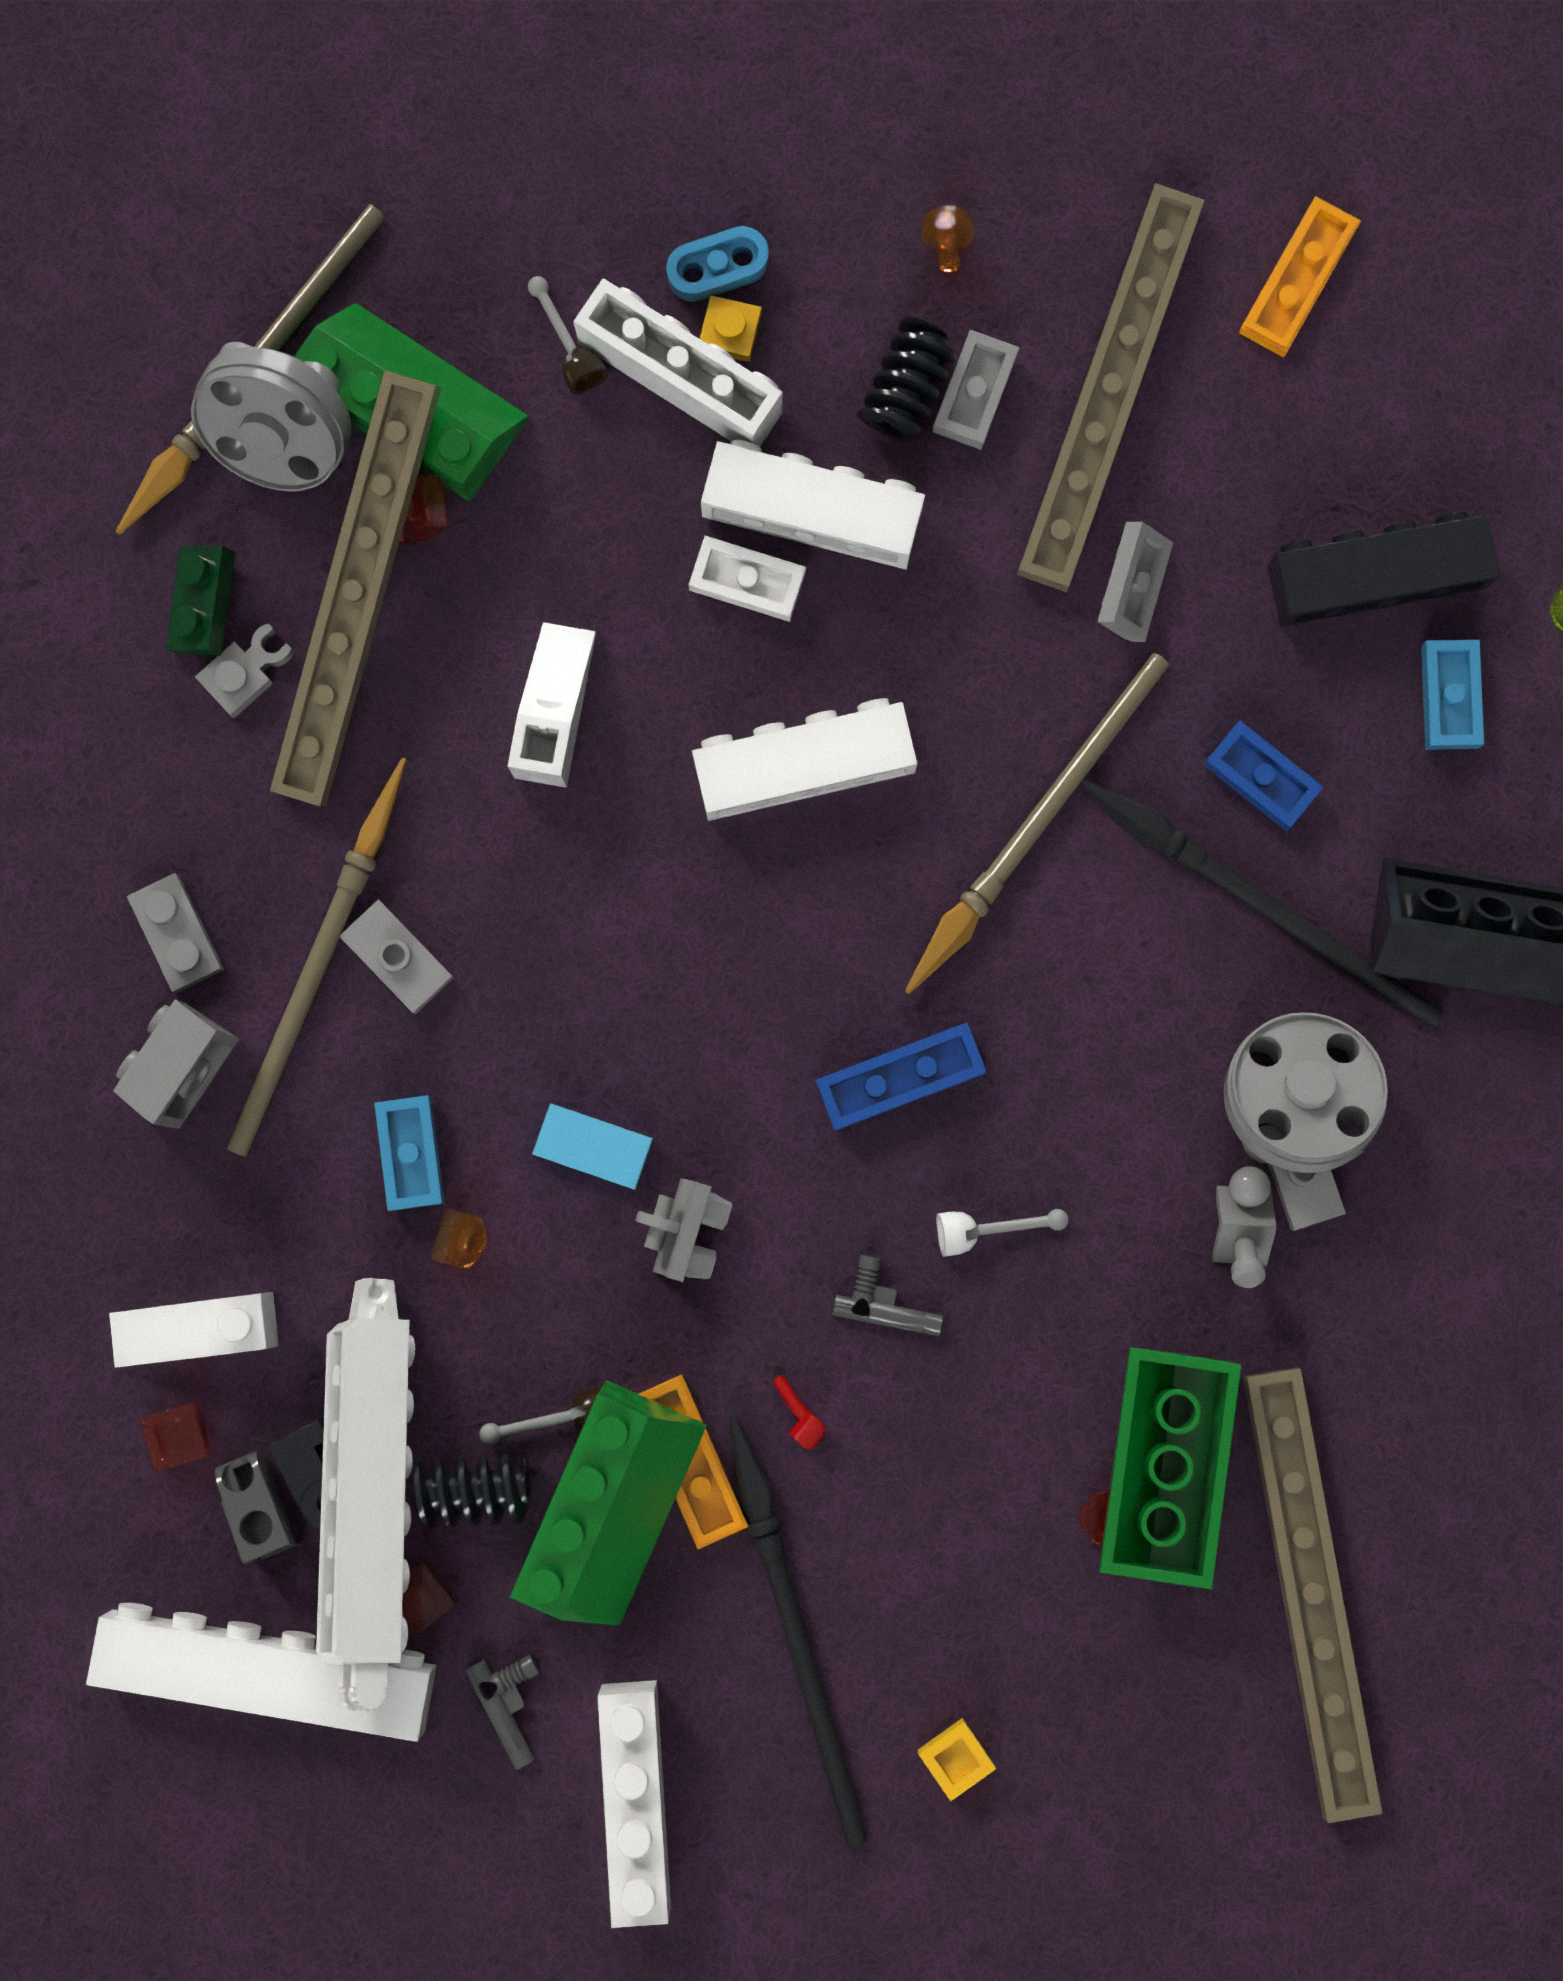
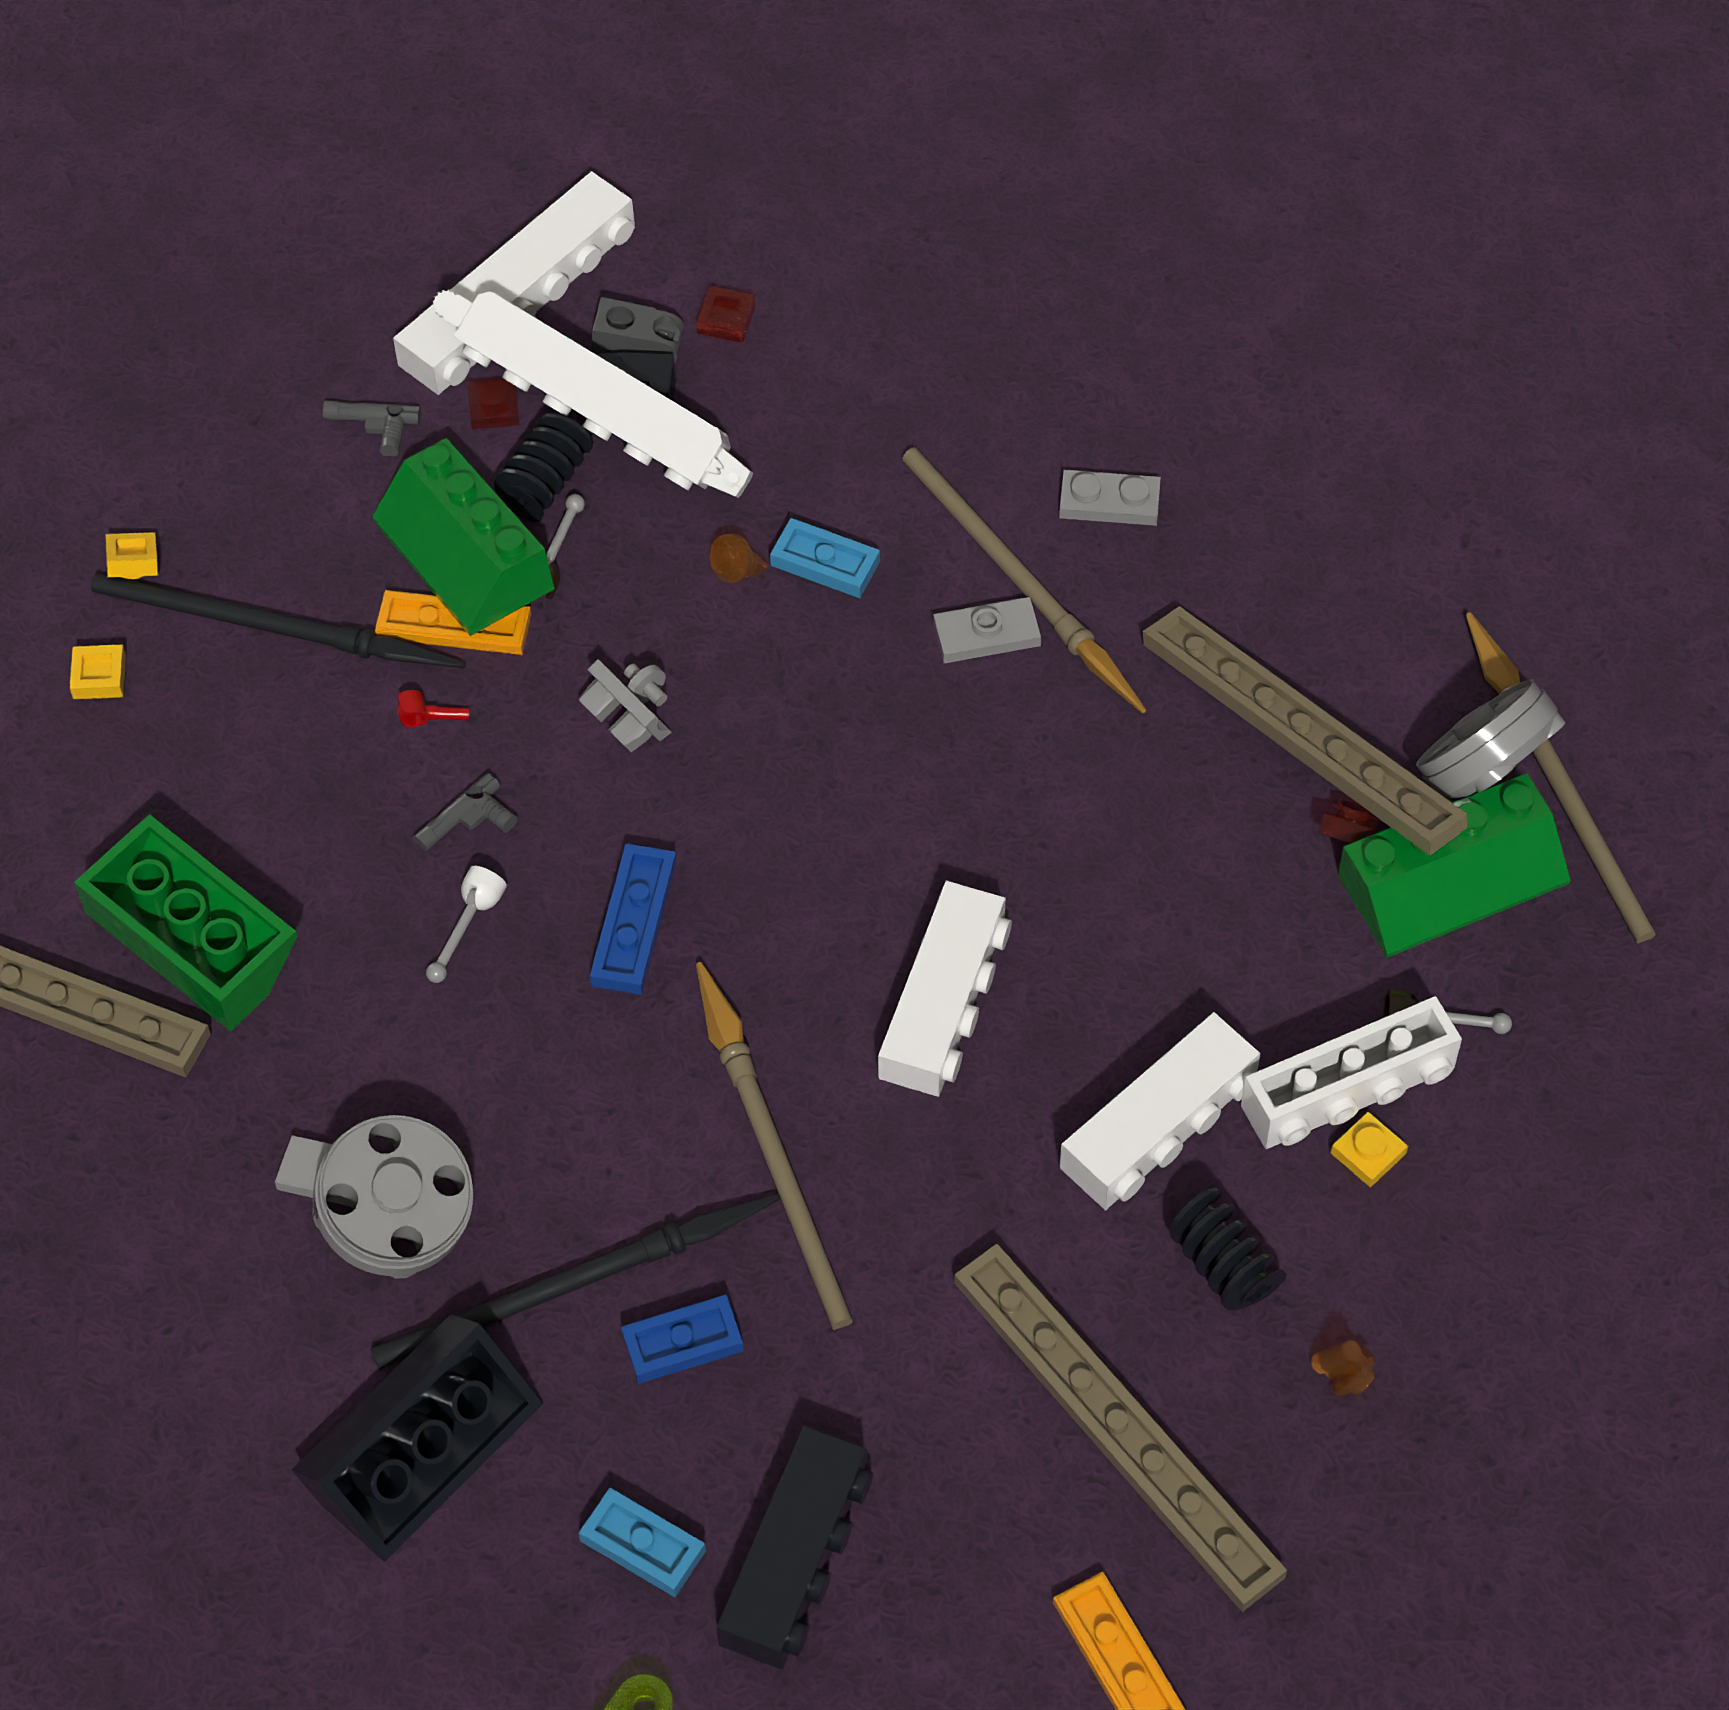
camera: 125 degrees right, 25 degrees down
(174, 1064) = (1001, 436): light grey slope -> none
(194, 1329) = (790, 366): white slope -> none
(200, 600) = (1372, 639): dark green plate -> none
(238, 676) = (1294, 638): light grey plate -> none
(551, 706) = (1114, 827): white slope -> none
(592, 1146) = (740, 683): medium azure tile -> none
(634, 1804) = (242, 451): white brick -> none
(714, 258) = (1434, 1170): dark azure plate -> none
(747, 578) = (1131, 1035): white plate -> none
(813, 1825) = (131, 555): none -> yellow plate
(975, 389) = (1185, 1309): light grey plate -> none
(1135, 581) = (923, 1334): light grey plate -> none
(1245, 1225) = (321, 1095): light grey piece -> none

